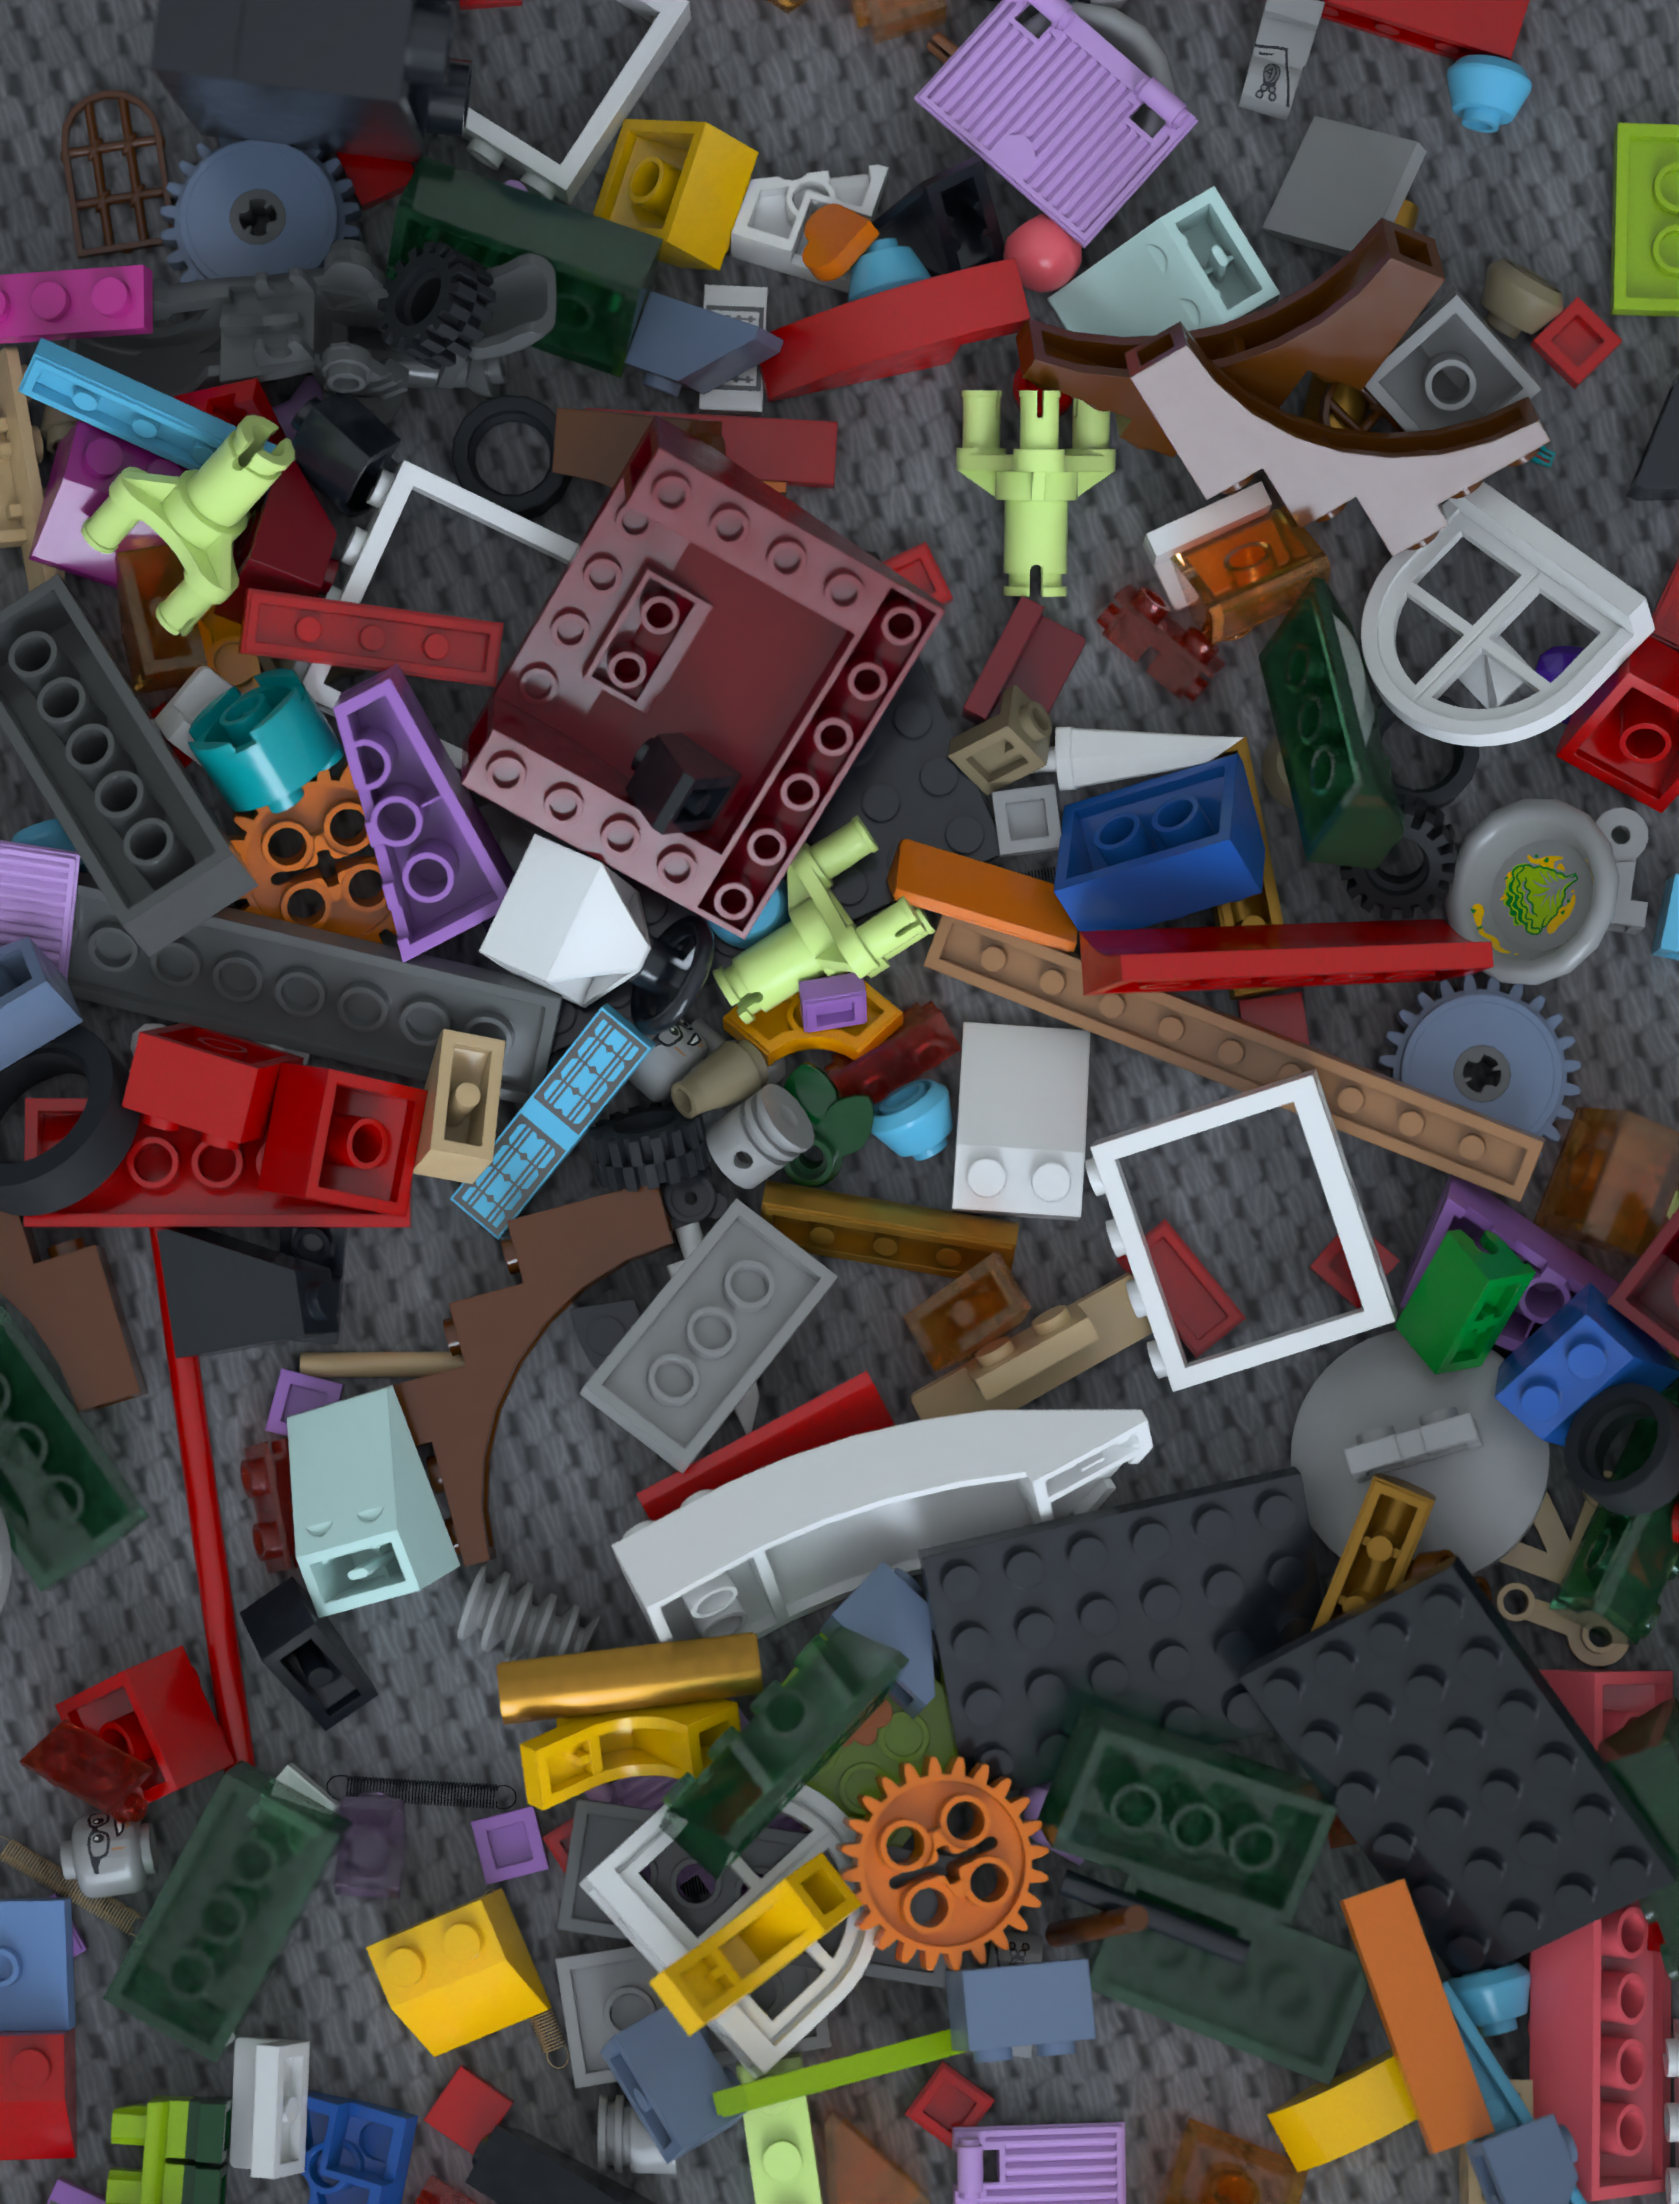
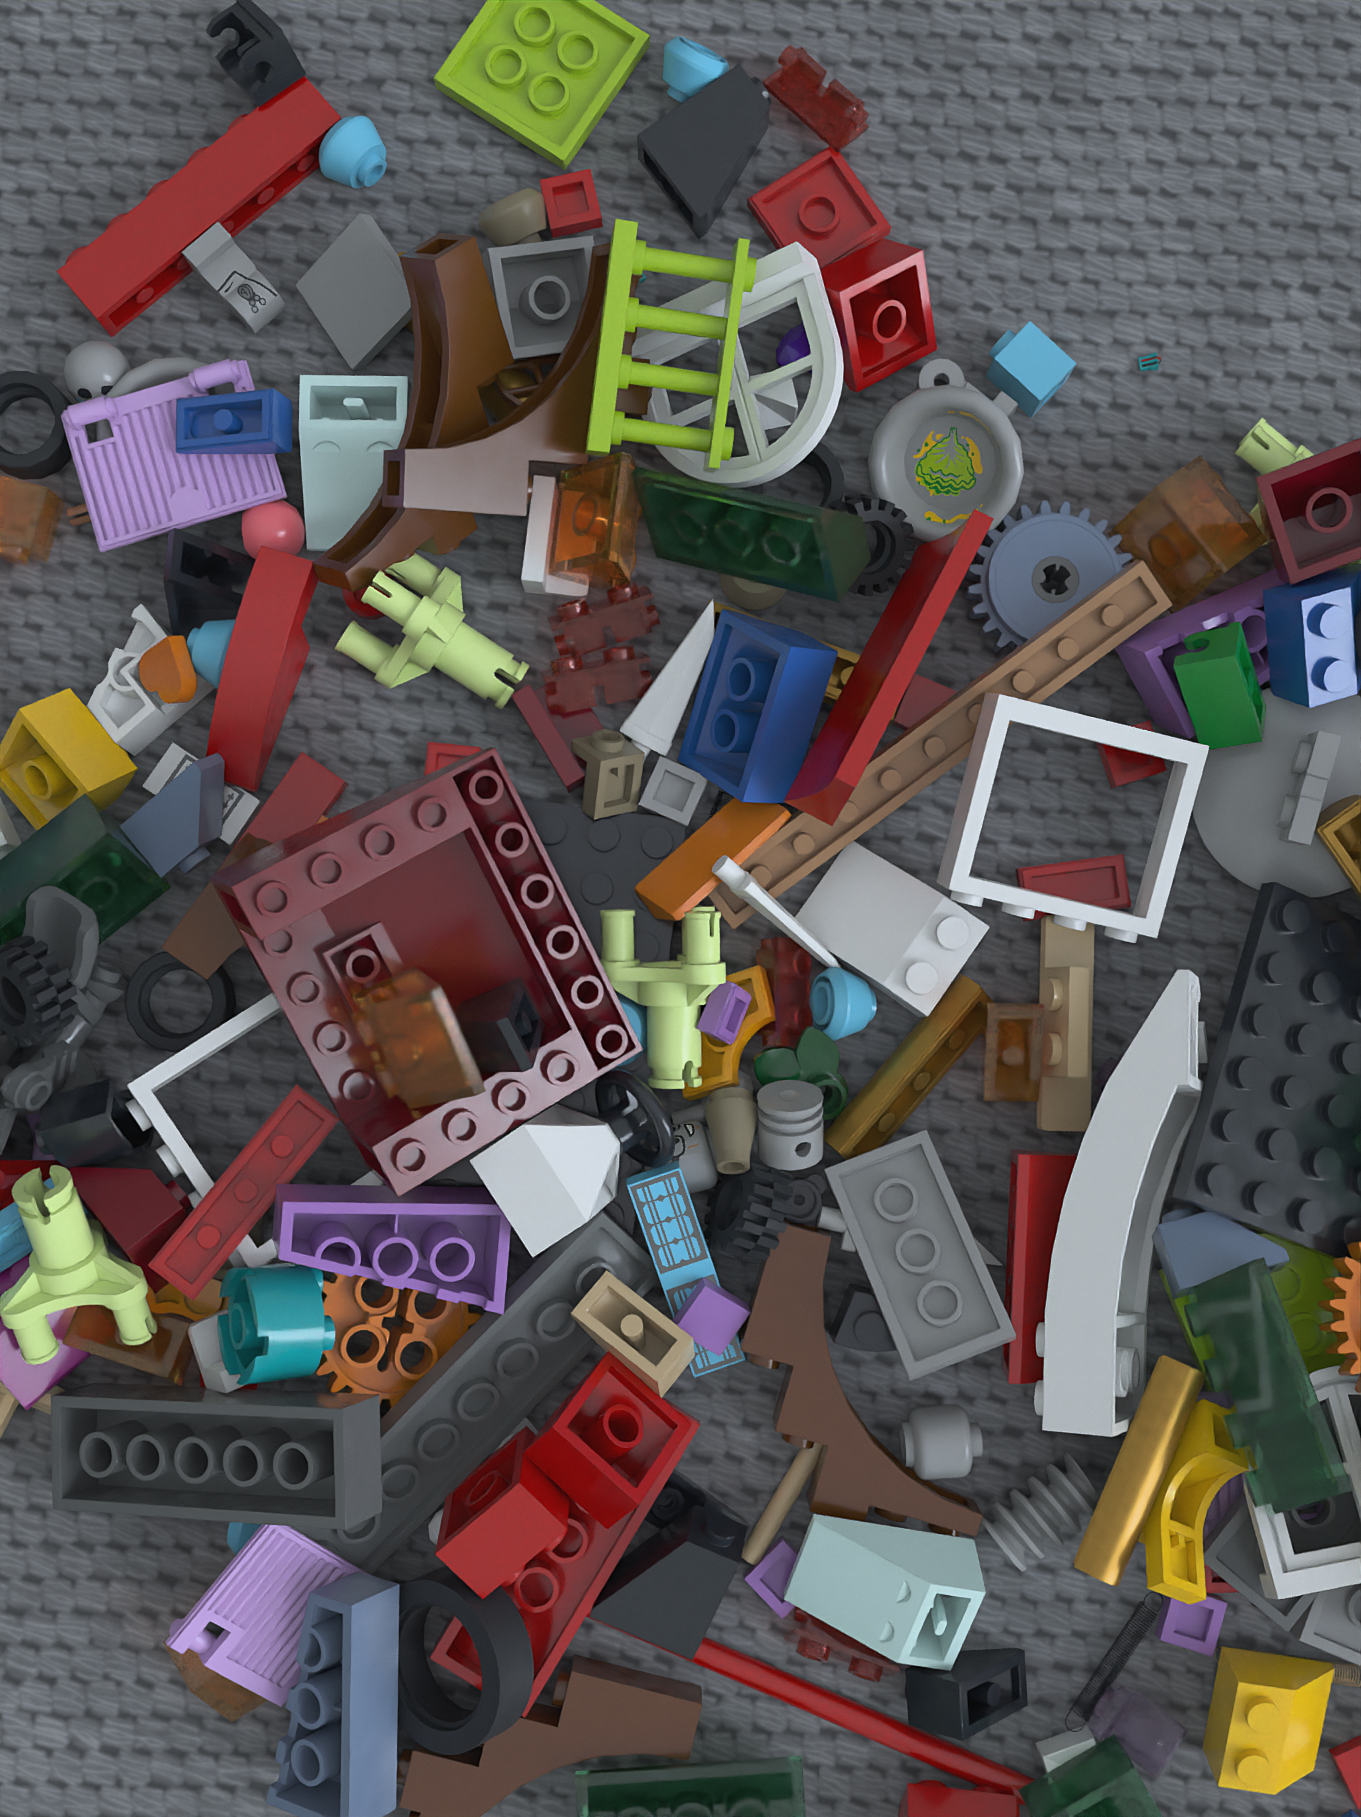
camera: 65 degrees left, 0 degrees up
(523, 1174) = (712, 1316): none -> medium lavender tile
(534, 1480) = (939, 1442): none -> light grey head
(618, 709) = (416, 1040): none -> clear orange slope
(969, 948) = (747, 888): none -> white bar
(1081, 652) = (575, 680): none -> clear red hinge
(1123, 152) = (235, 423): none -> blue slope
(1464, 473) = (625, 314): none -> lime fence

